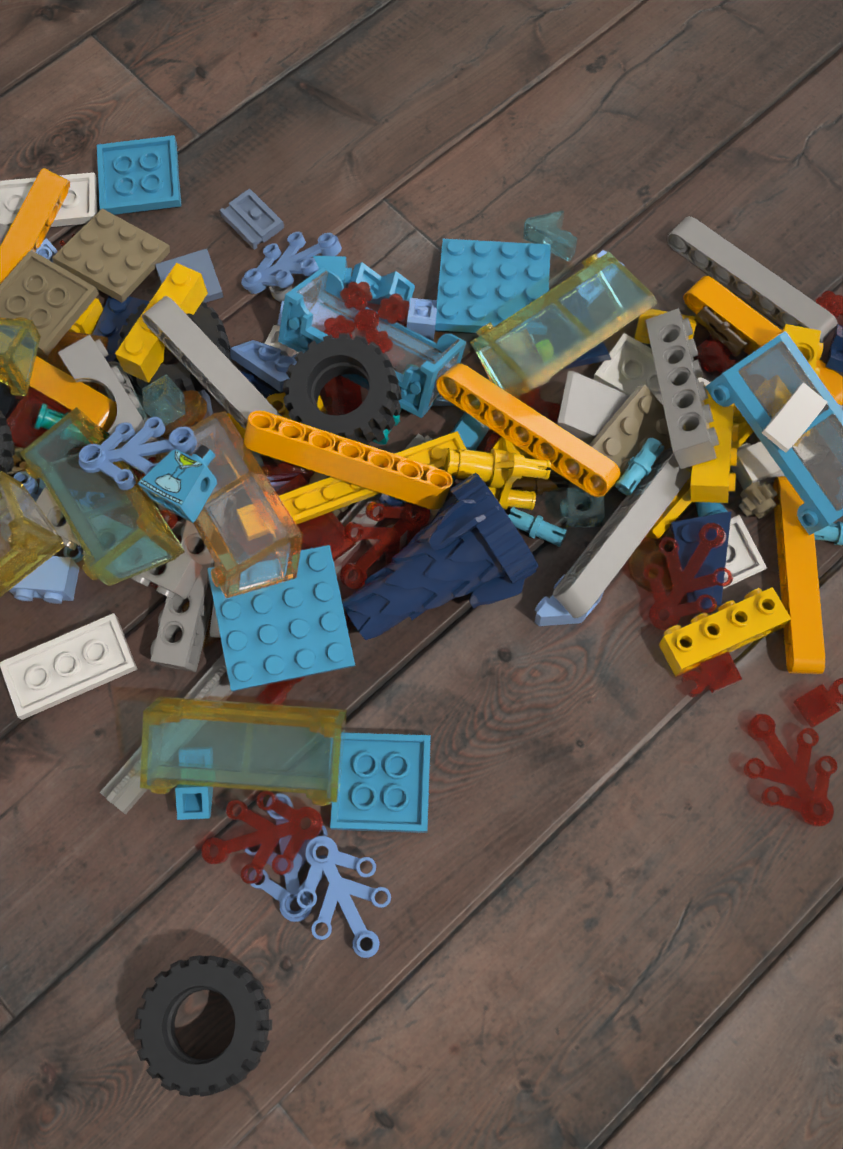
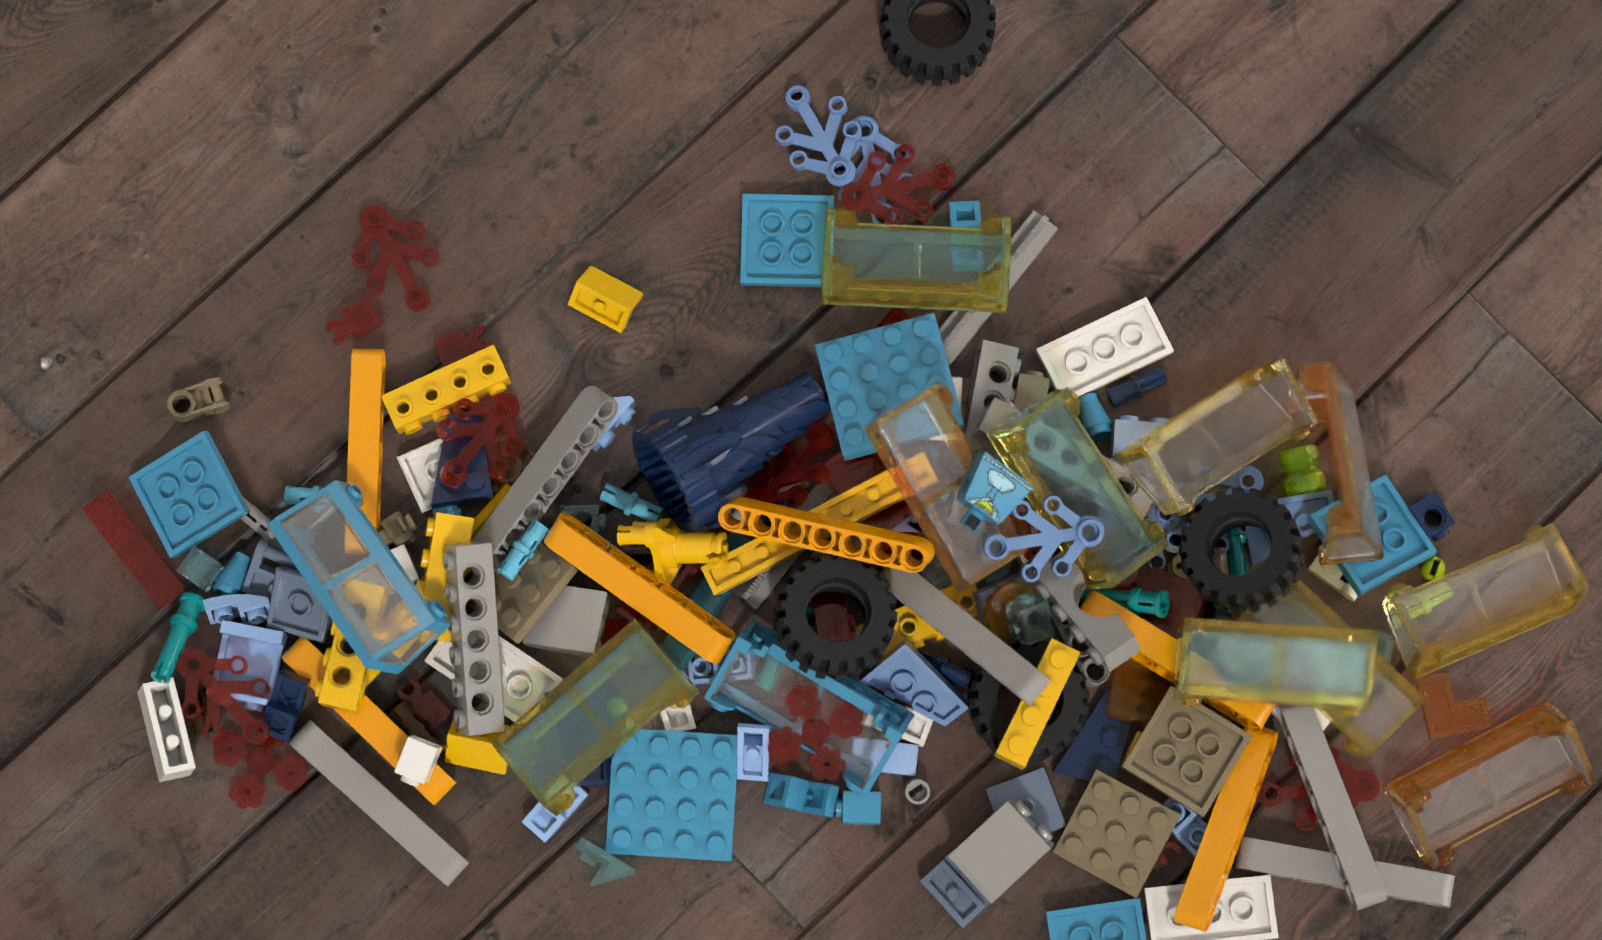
camera: 175 degrees right, 10 degrees up
(42, 631) = (1136, 387): none -> dark blue axle
(86, 600) = (1094, 417): none -> dark azure cone
(142, 621) = (1030, 389): none -> dark tan brick
(211, 232) = (1002, 849): none -> light grey slope
(259, 278) = (912, 821): medium blue plant -> none
(568, 725) = (604, 298): none -> yellow panel
(721, 295) = (417, 760): none -> white brick
(794, 417) = (365, 572): white slope -> none

